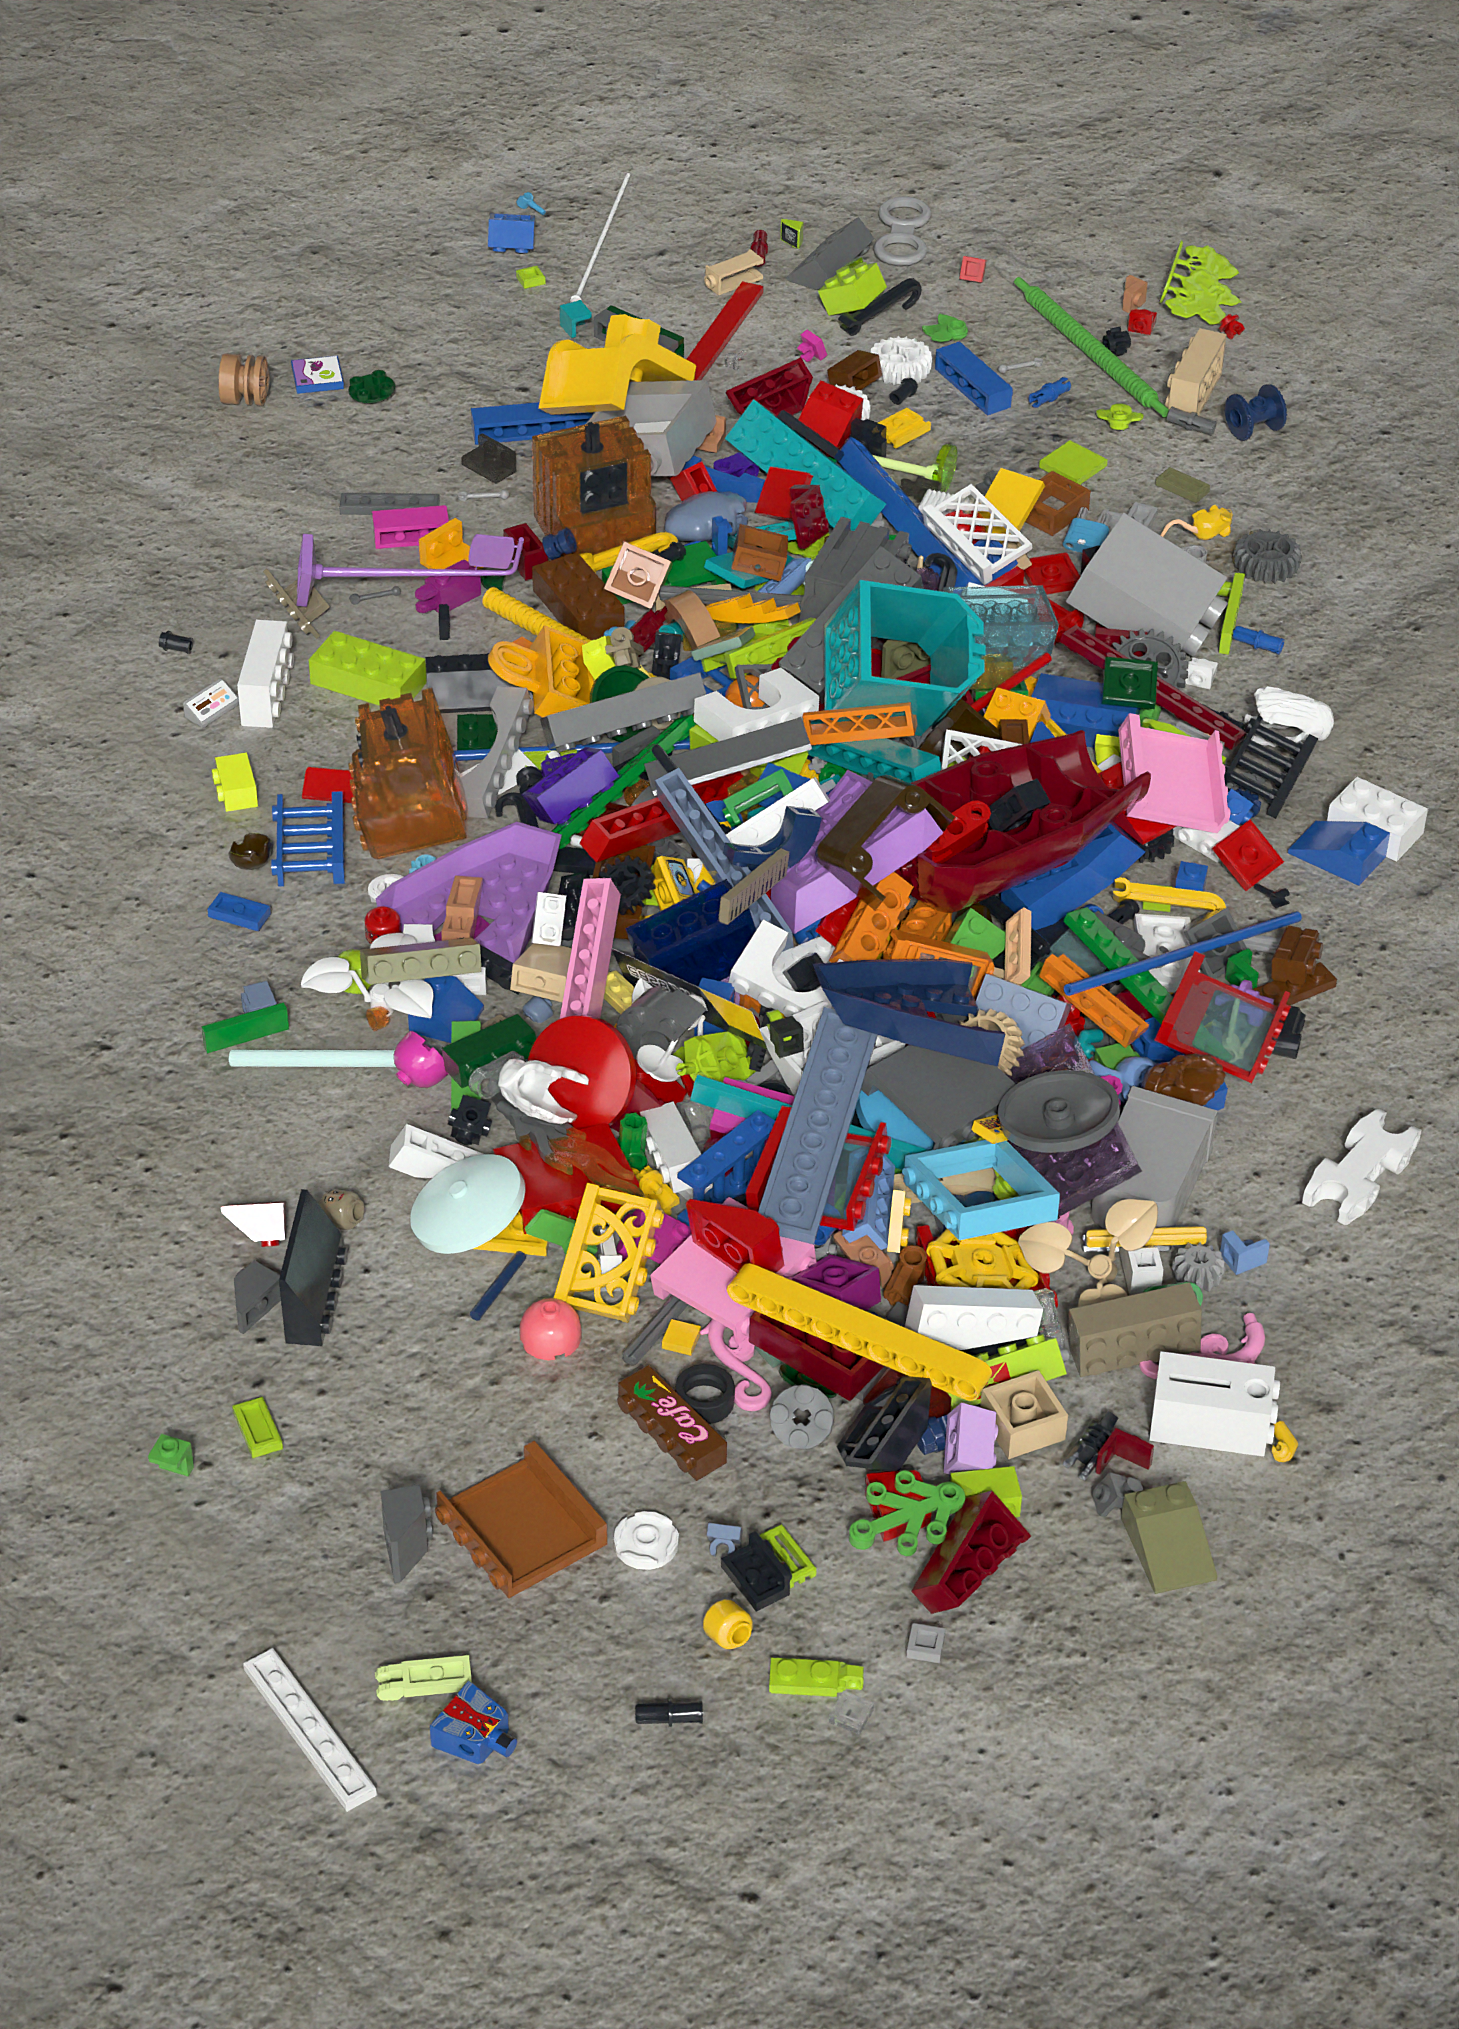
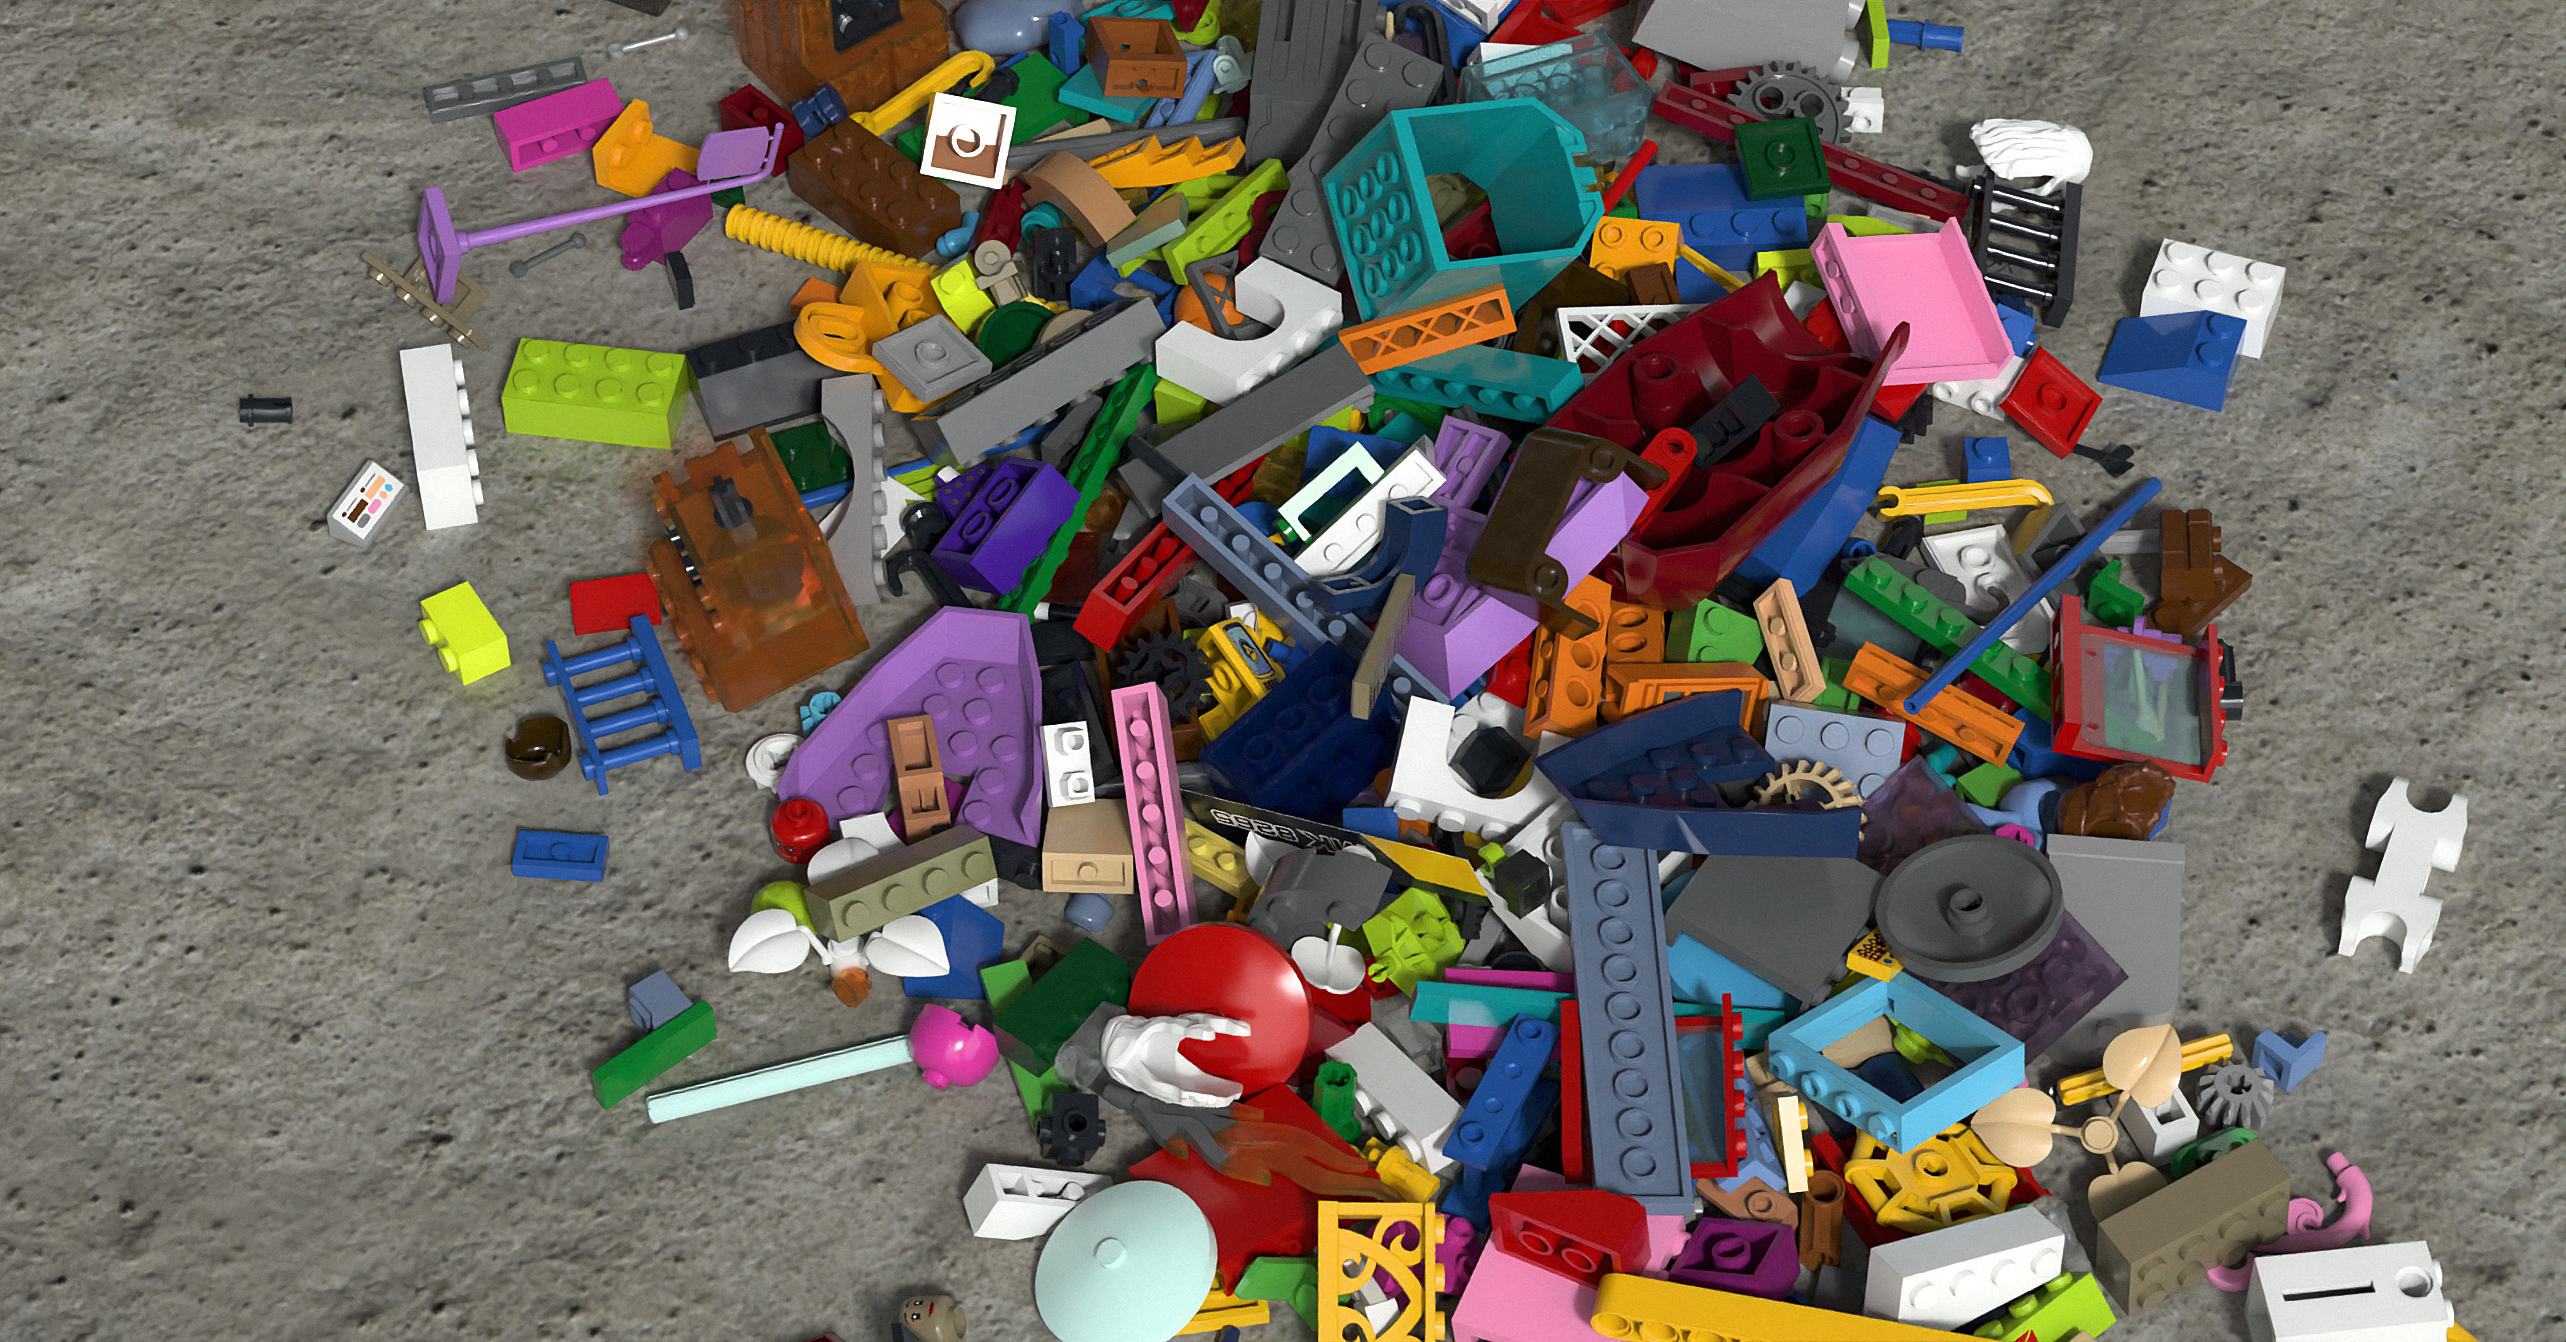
camera: 15 degrees left, 5 degrees up
(563, 685) = (932, 358): none -> light grey tile

